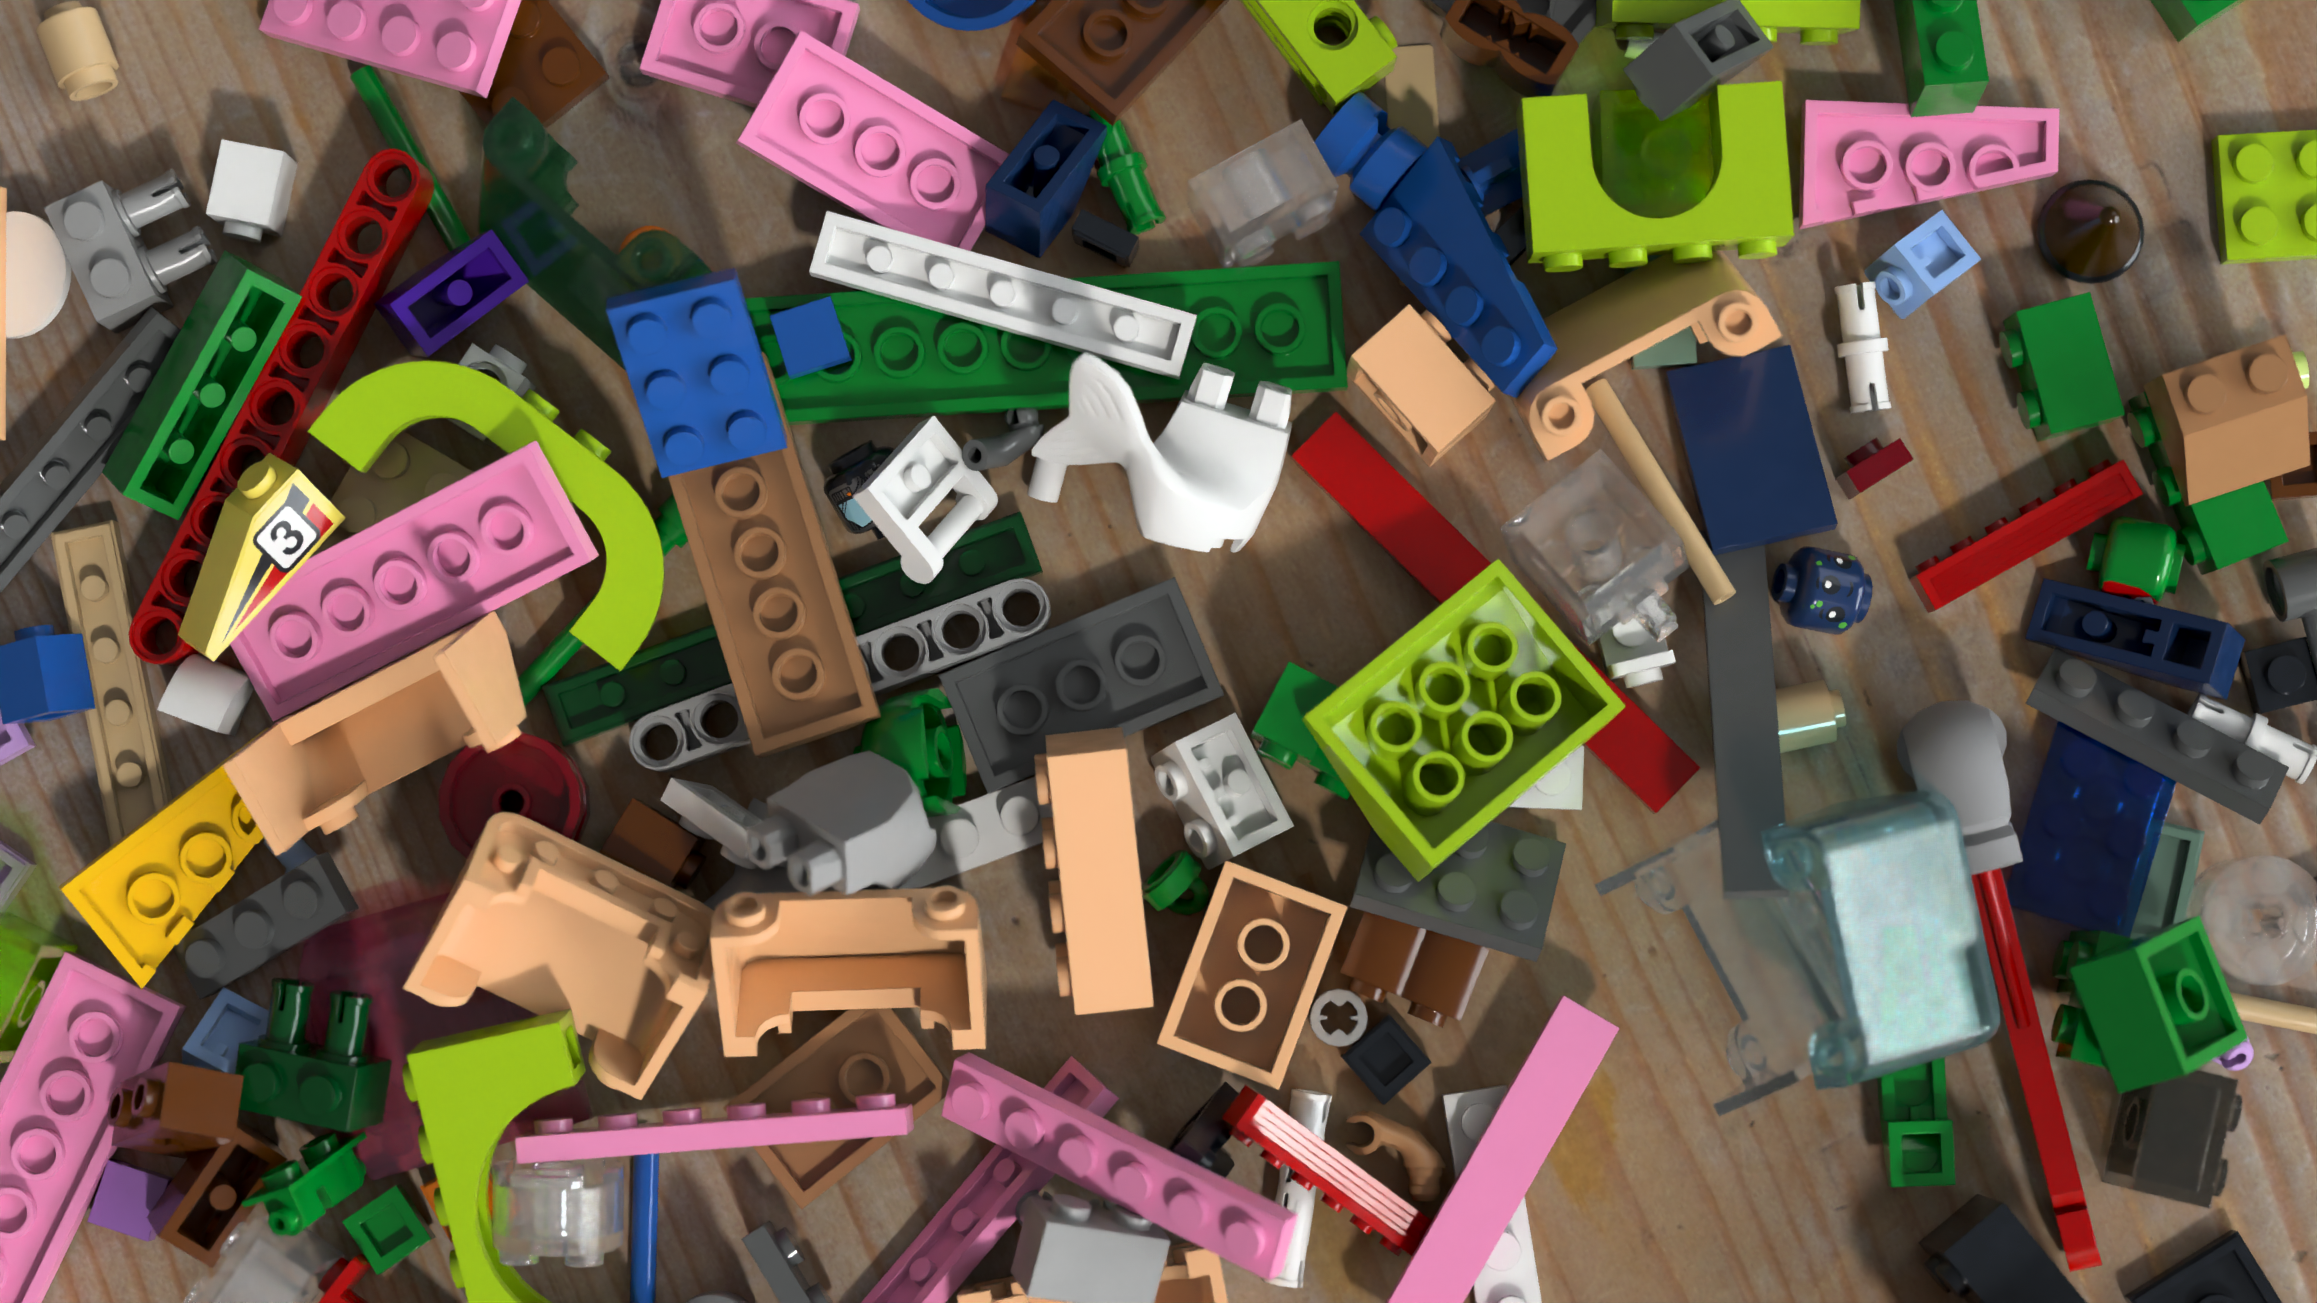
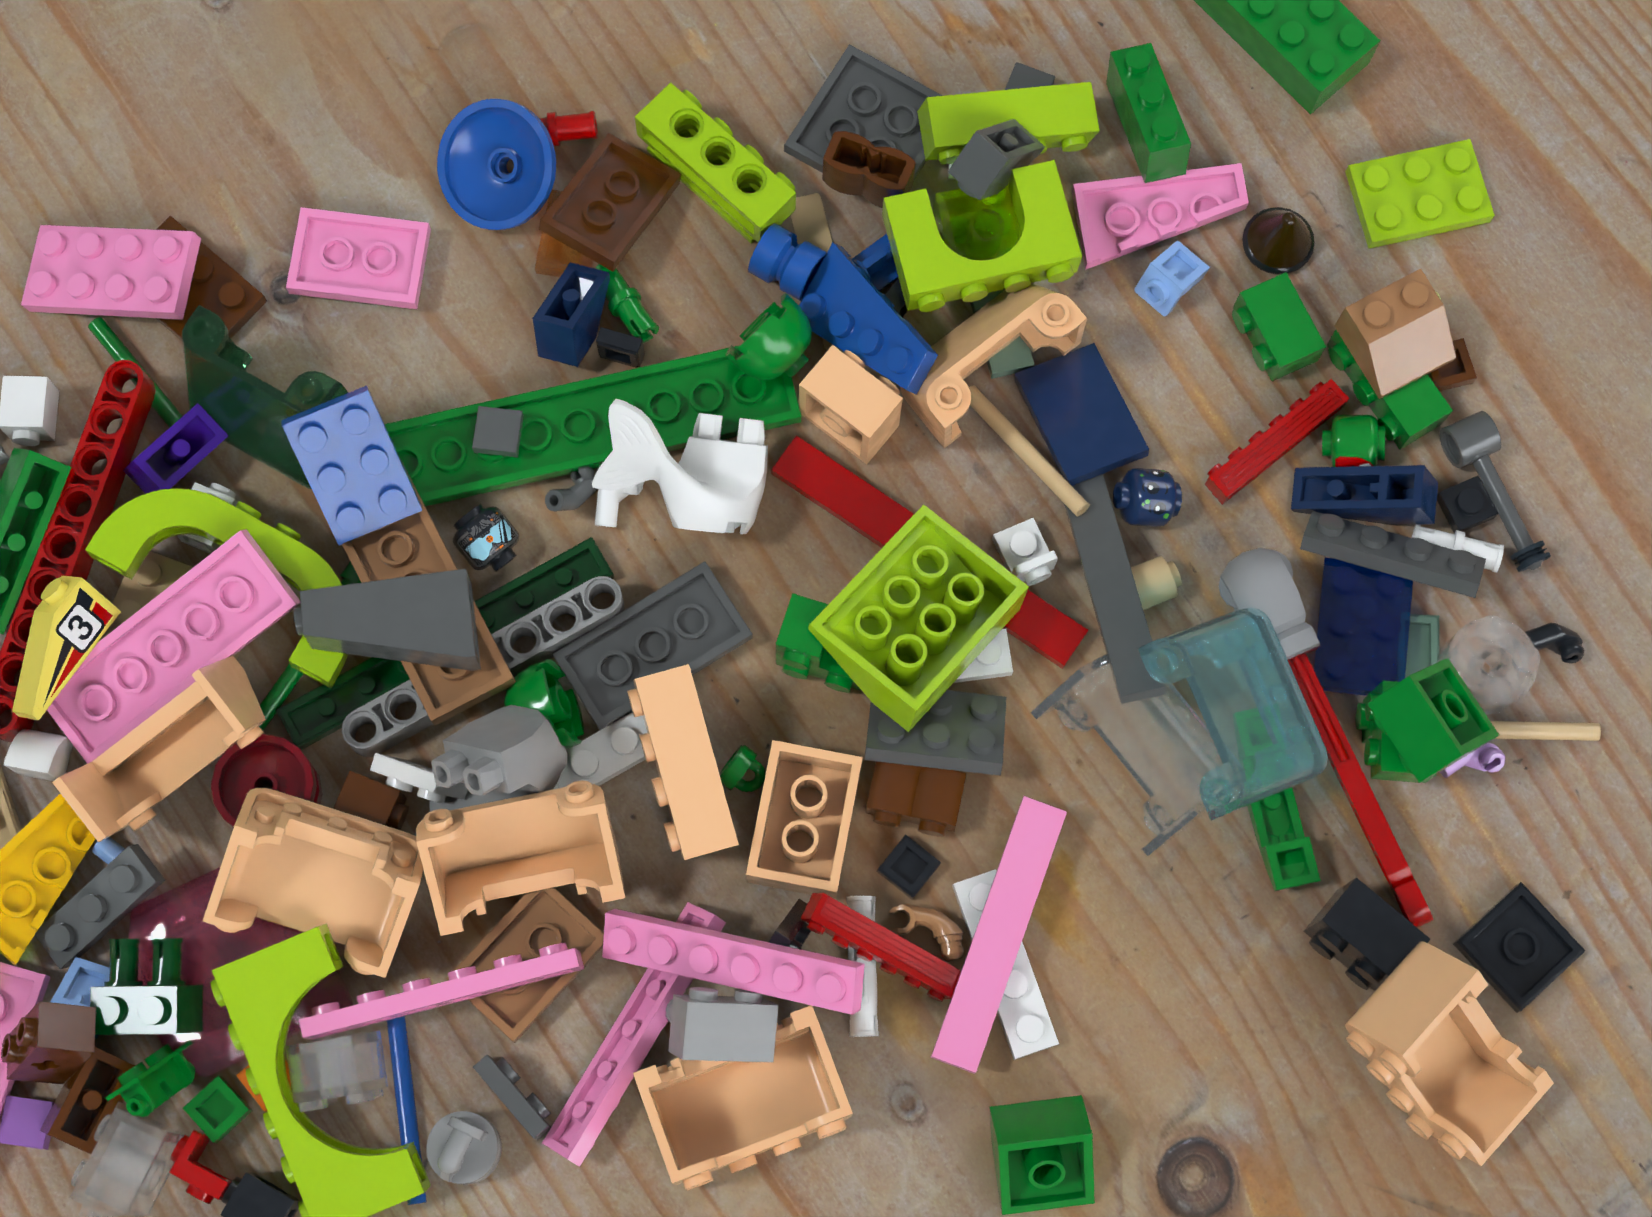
camera: 15 degrees left, 10 degrees down
(736, 606) = (398, 619): none -> dark grey slope
(810, 337) = (428, 442): blue tile -> none
(872, 146) = (453, 313): bright pink plate -> none
(911, 338) = (497, 431): none -> dark grey tile
(911, 487) = (514, 524): white plate -> none
(1002, 295) = (551, 390): white plate -> none
(1220, 791) = (760, 701): white bracket -> none
(1263, 196) = (721, 298): clear brick -> none
(1325, 276) = (774, 342): none -> green cylinder
(1338, 1037) = (867, 830): light grey bush -> none
(1599, 551) = (991, 492): clear hinge -> none
(1862, 347) = (1143, 336): white pin -> none
(1872, 464) = (1165, 410): dark red plate -> none
(2174, 1137) = (1462, 817): clear smoke brick -> none

